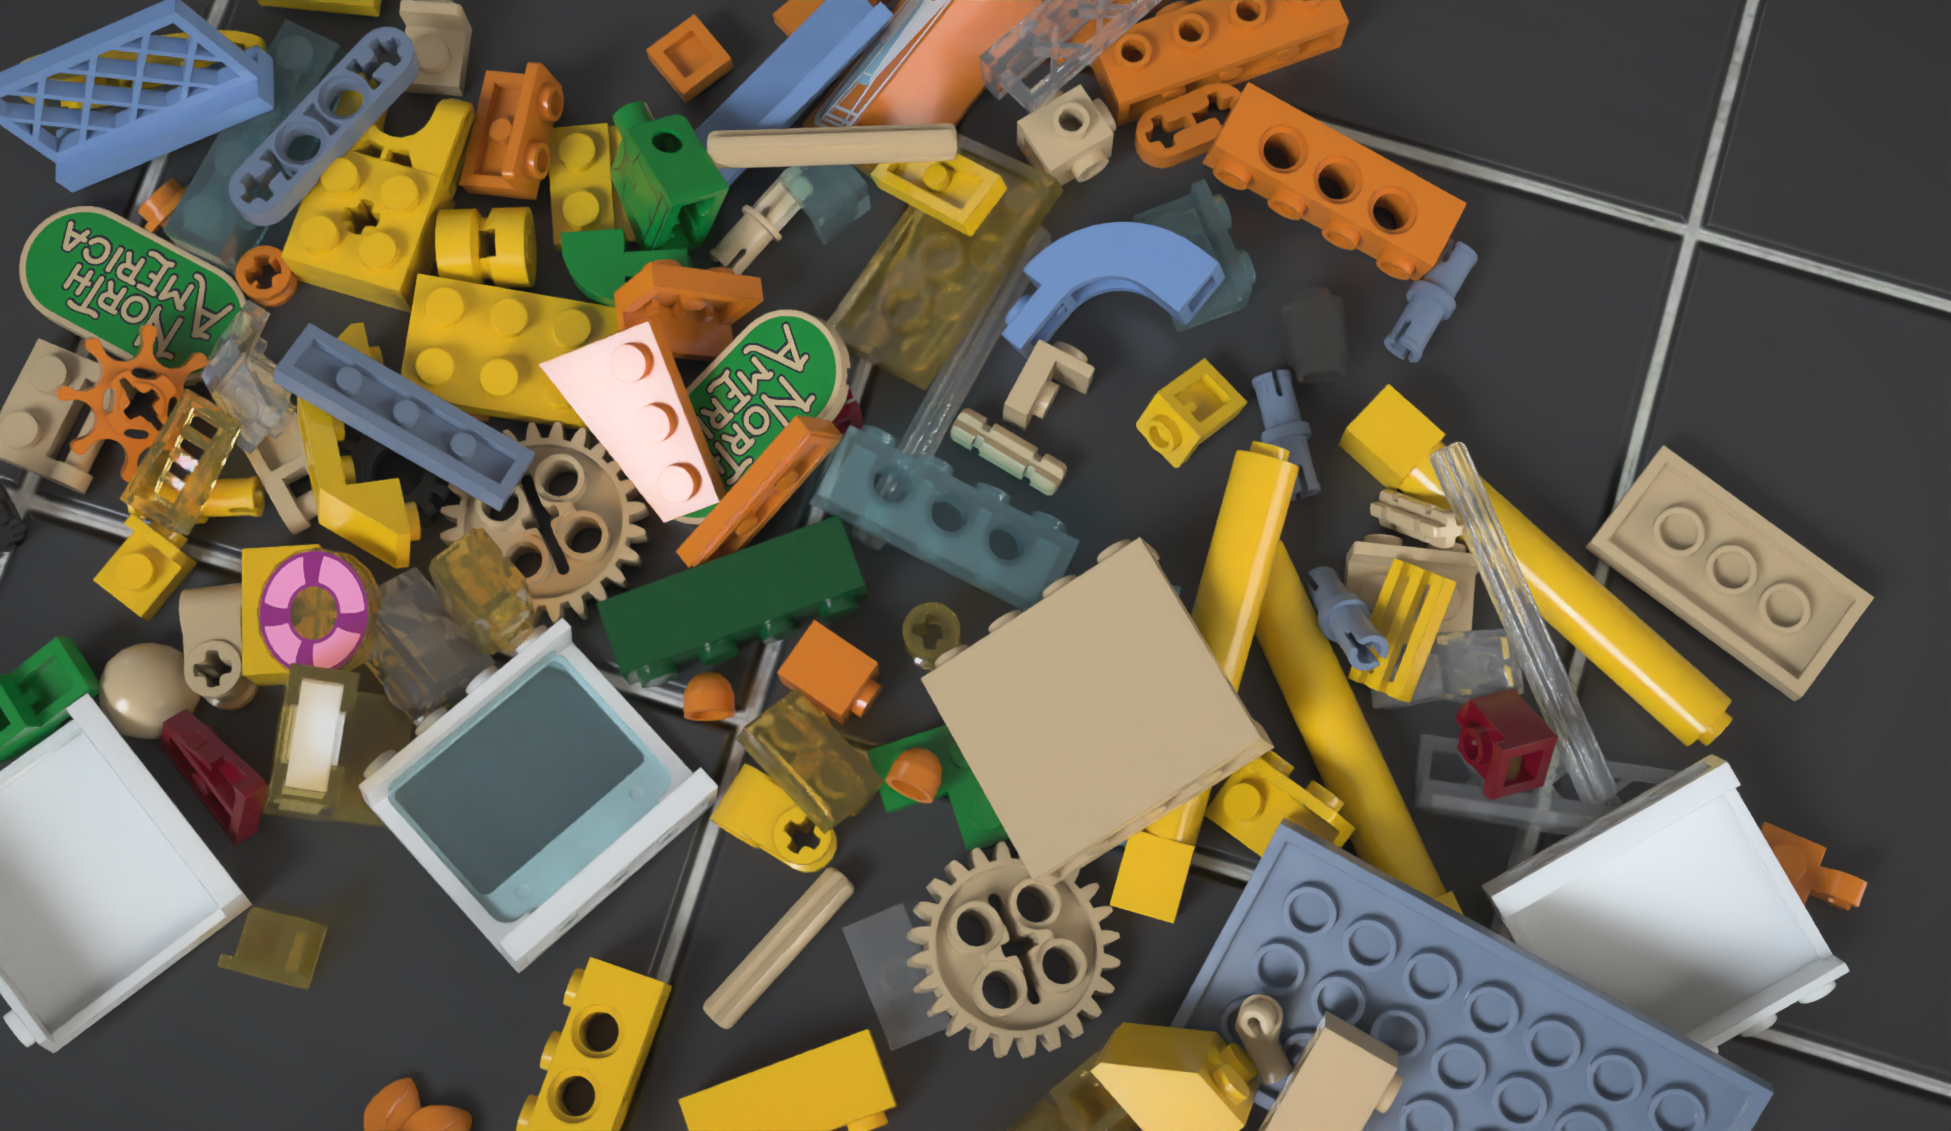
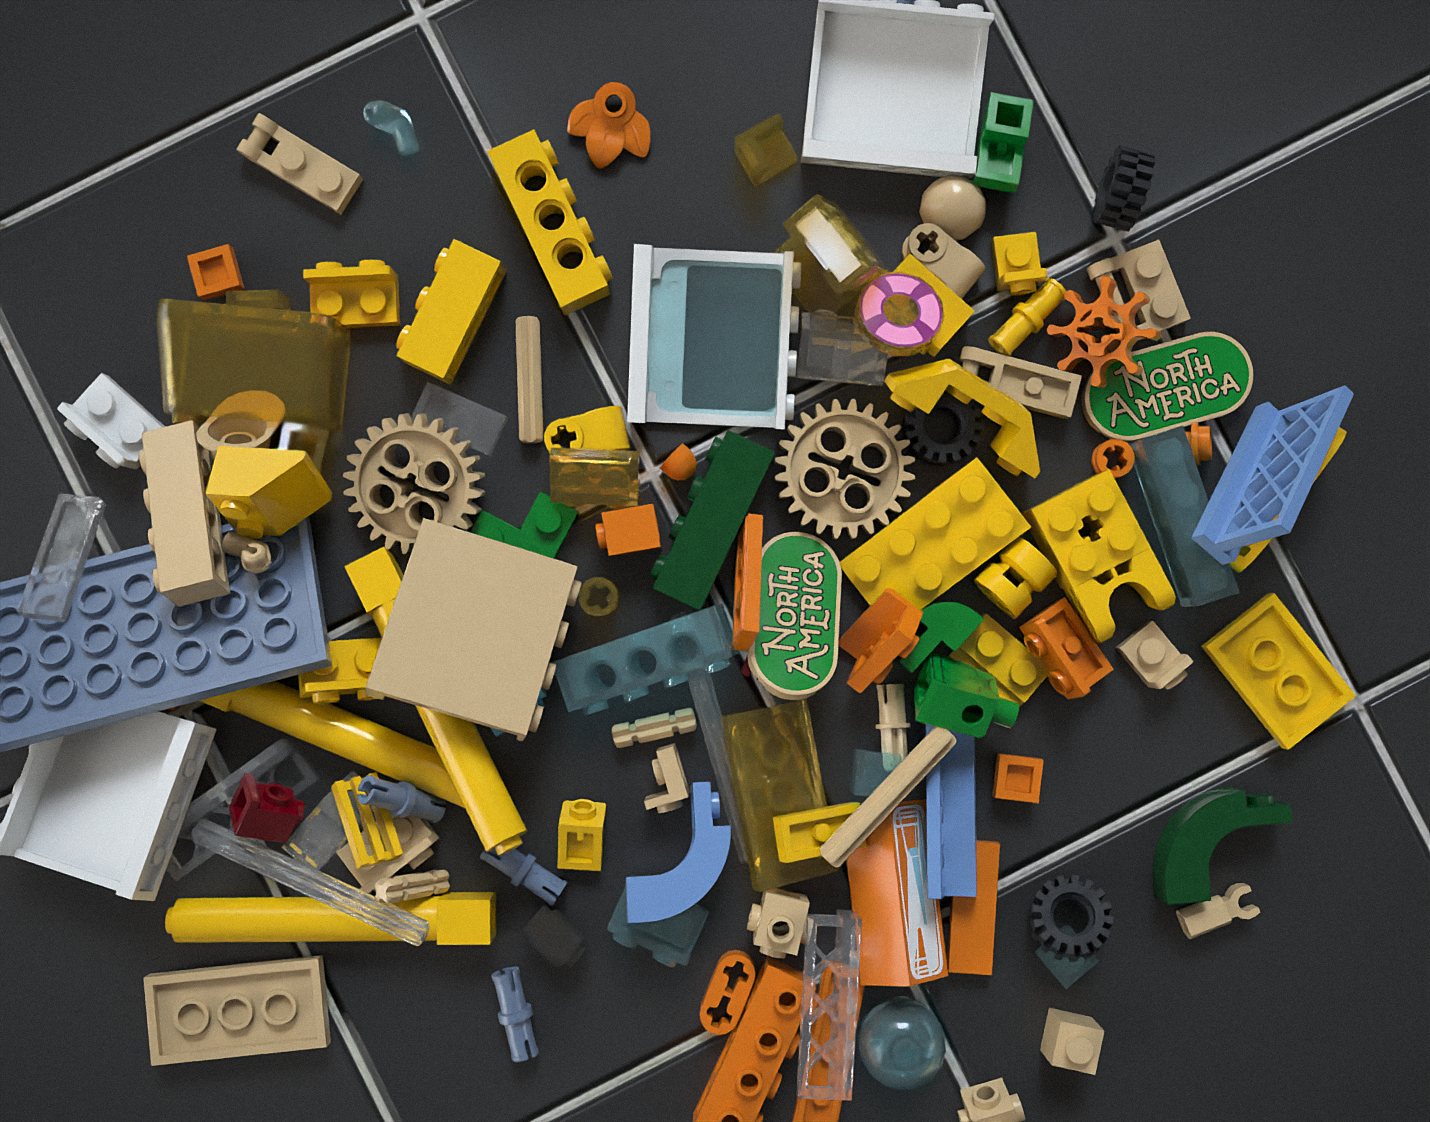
camera: 135 degrees right, 10 degrees up
(153, 471) = (1039, 289): clear yellow slope -> none
(215, 774) = (890, 199): dark red wing -> none
(243, 378) = (1055, 388): clear slope -> none
(315, 119) = (1164, 554): sand blue beam -> none
(403, 416) = (959, 446): sand blue plate -> none
(484, 593) = (825, 397): clear yellow brick -> none
(642, 416) = (845, 564): wing -> none
(916, 775) = (537, 520): orange hinge -> none
(1367, 180) = (559, 1056): orange brick -> none
(1801, 864) = (73, 890): orange plate -> none

